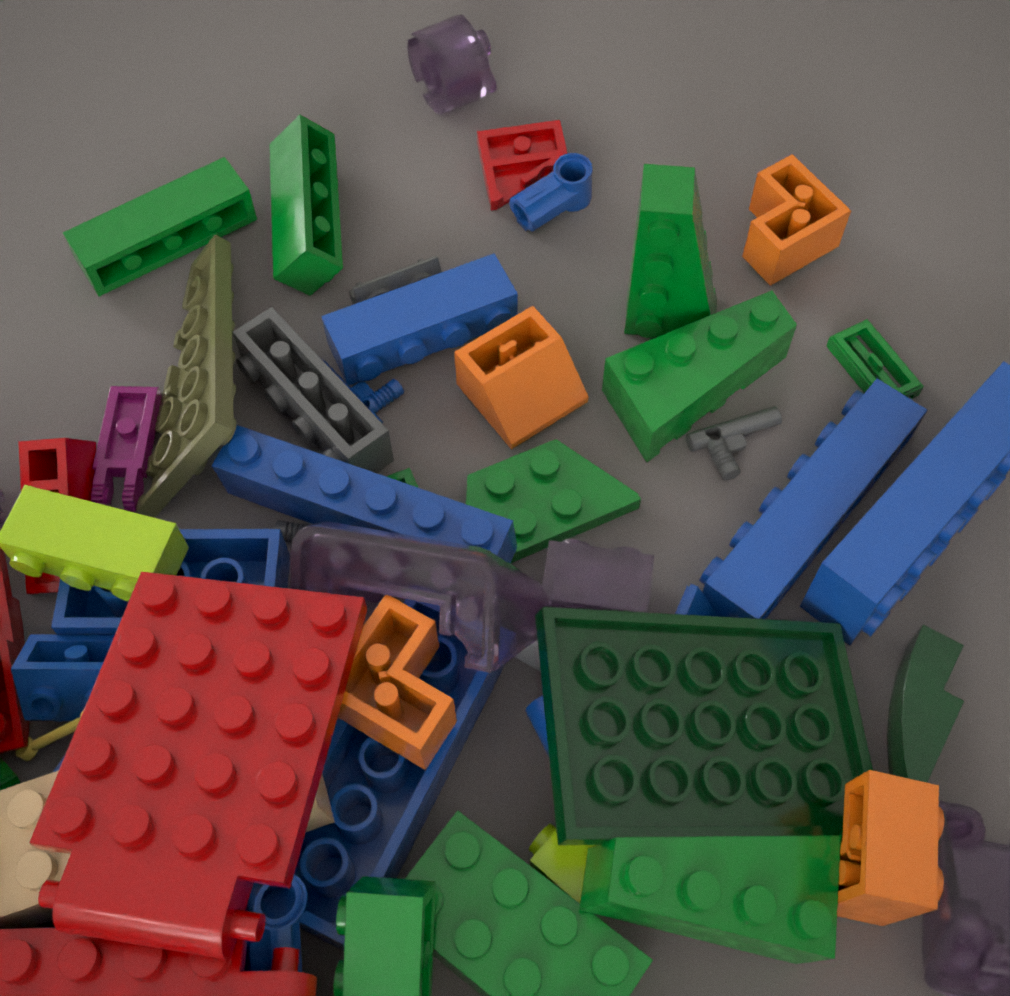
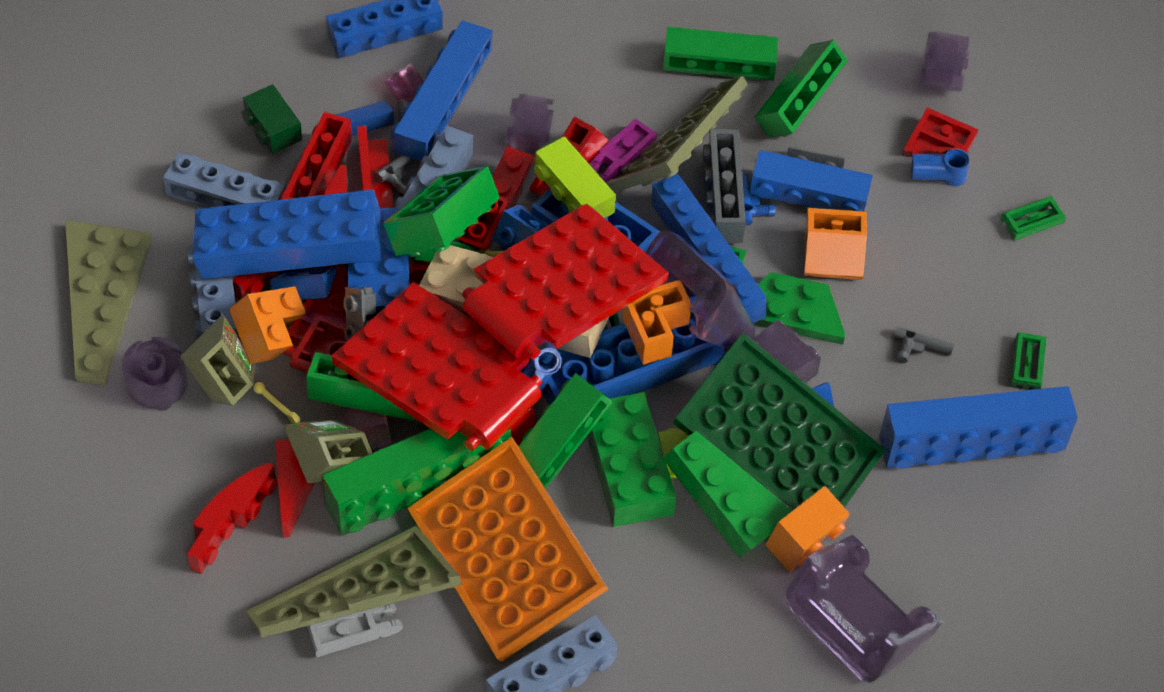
camera: 35 degrees right, 5 degrees down
(670, 257) = (950, 235): green wedge -> none
(694, 369) = (929, 299): green wedge -> none
(723, 159) = (1035, 222): none -> green tile
(794, 220) = (1050, 267): orange brick -> none
(813, 505) = (867, 401): blue brick -> none
(920, 707) = (888, 506): dark green slope -> none

